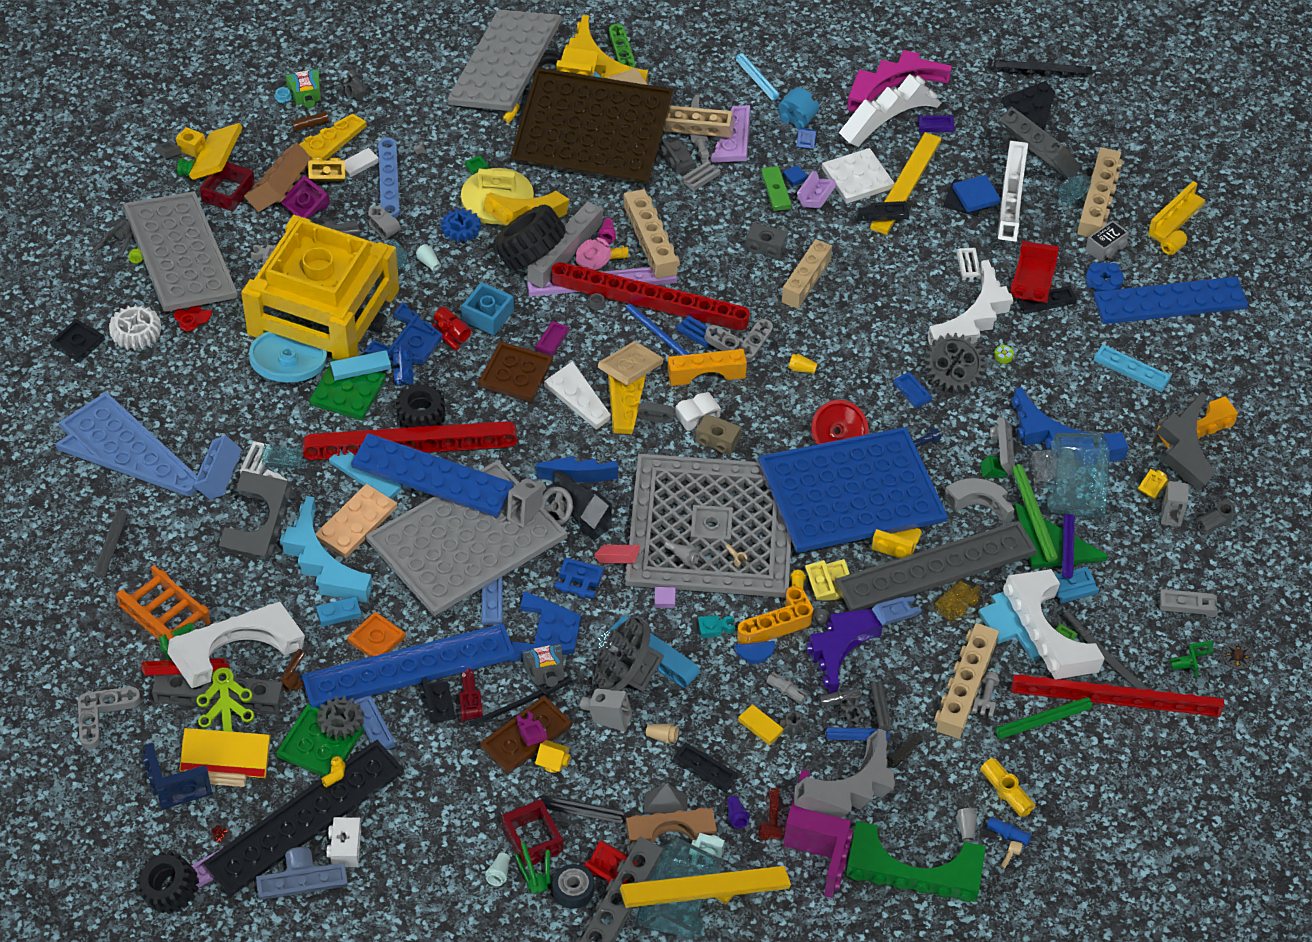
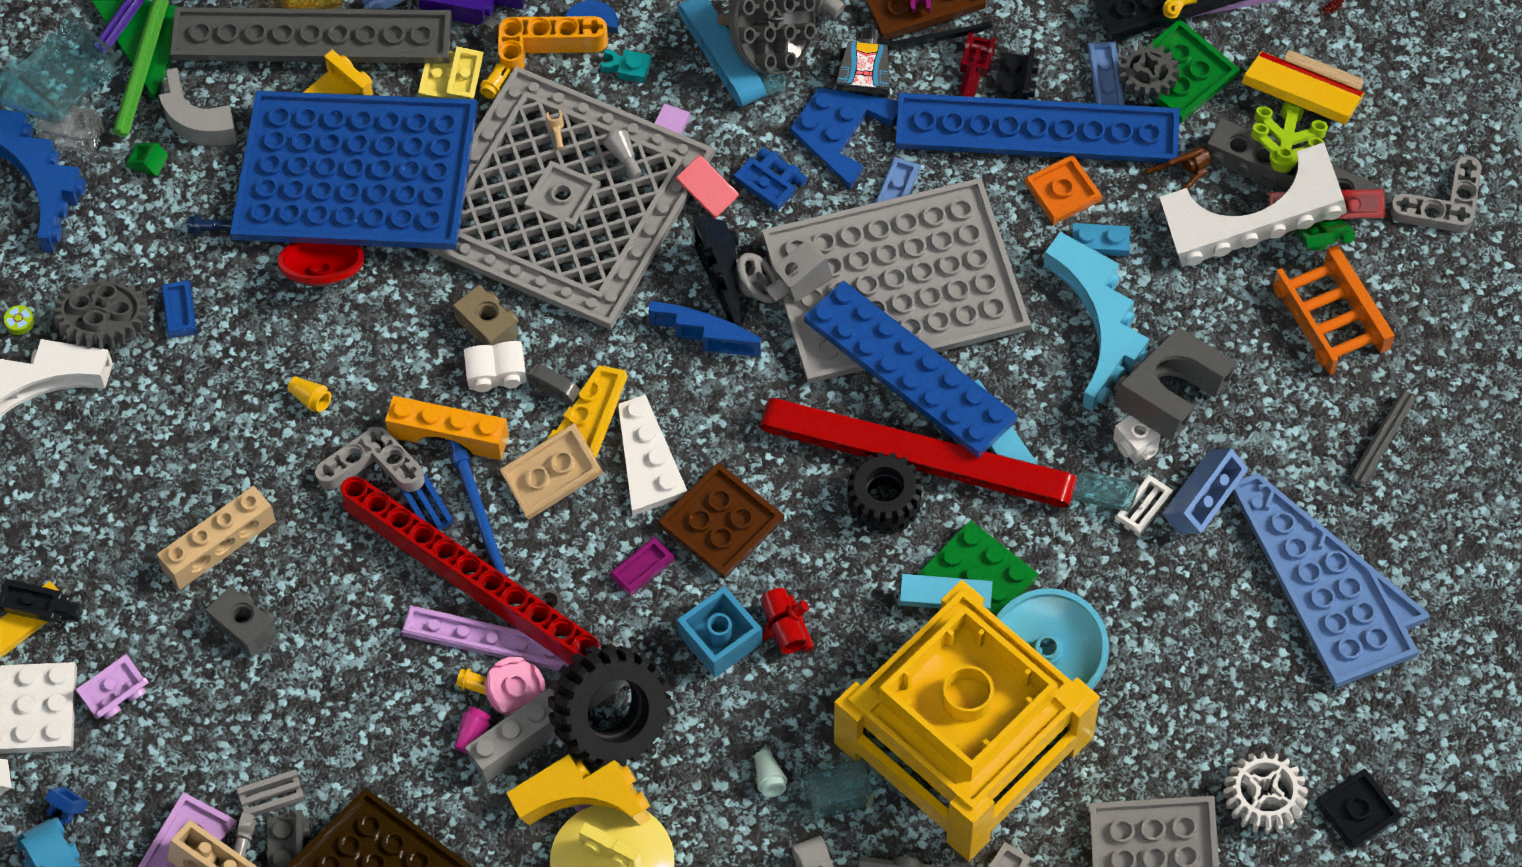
camera: 155 degrees left, 10 degrees up
(178, 787) = (1376, 52): dark blue bracket -> none
(192, 317) = (1162, 784): red plate -> none
(356, 520) = (1035, 362): light nougat plate -> none
(403, 356) = (883, 577): blue hinge -> none
(417, 335) = (847, 623): blue wing -> none
(460, 225) = (707, 819): blue gear -> none
(651, 233) = (407, 765): tan brick -> none
(776, 188) = (173, 704): bright green tile -> none
(795, 175) = (125, 741): blue tile -> none
(1003, 433) = (103, 197): light grey hinge -> none

